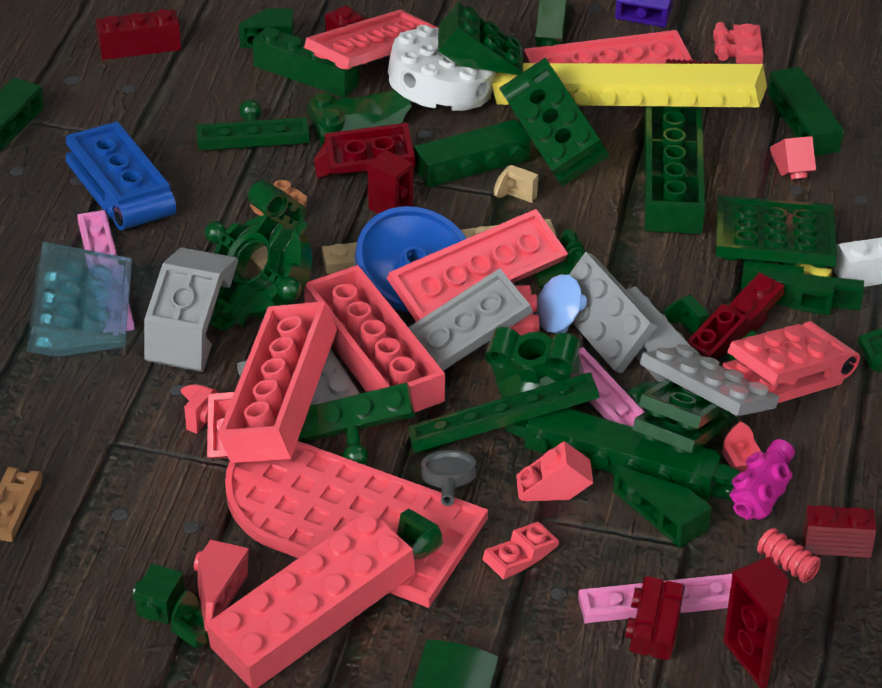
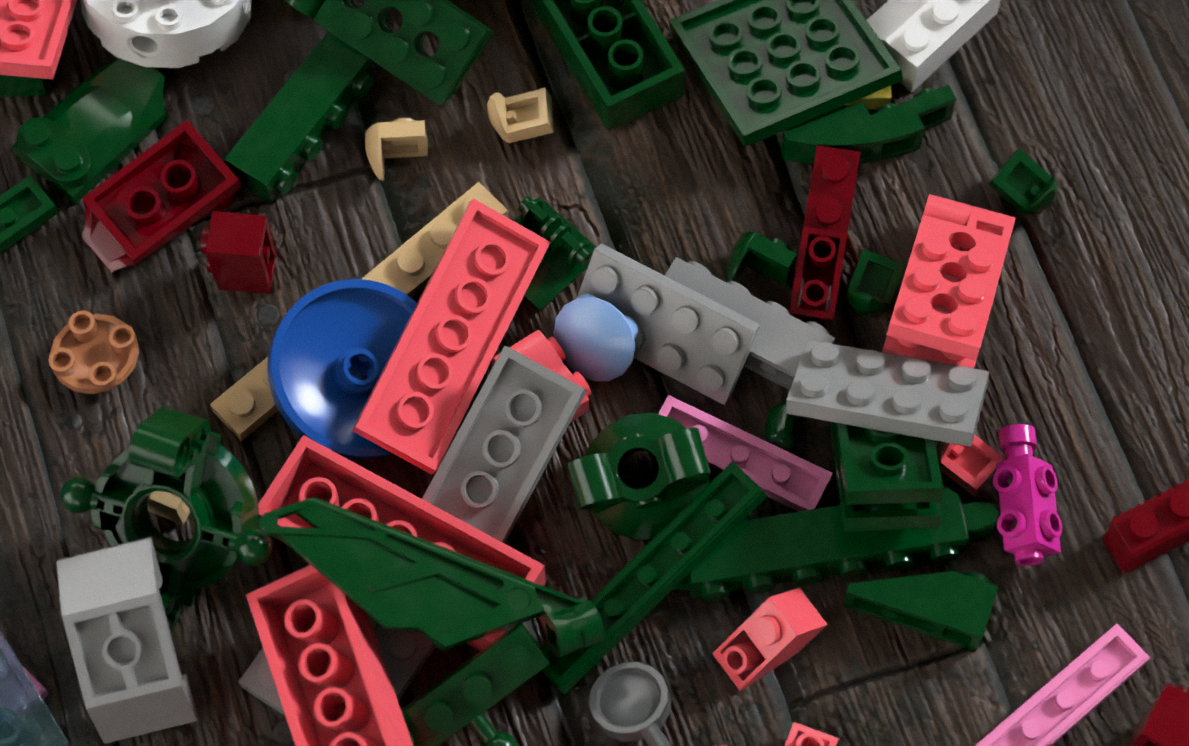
camera: 30 degrees left, 25 degrees up
(370, 343) = (427, 586): none -> dark green wing
(597, 202) = (521, 115): none -> tan plate
(789, 555) = (1118, 595): coral piece -> none

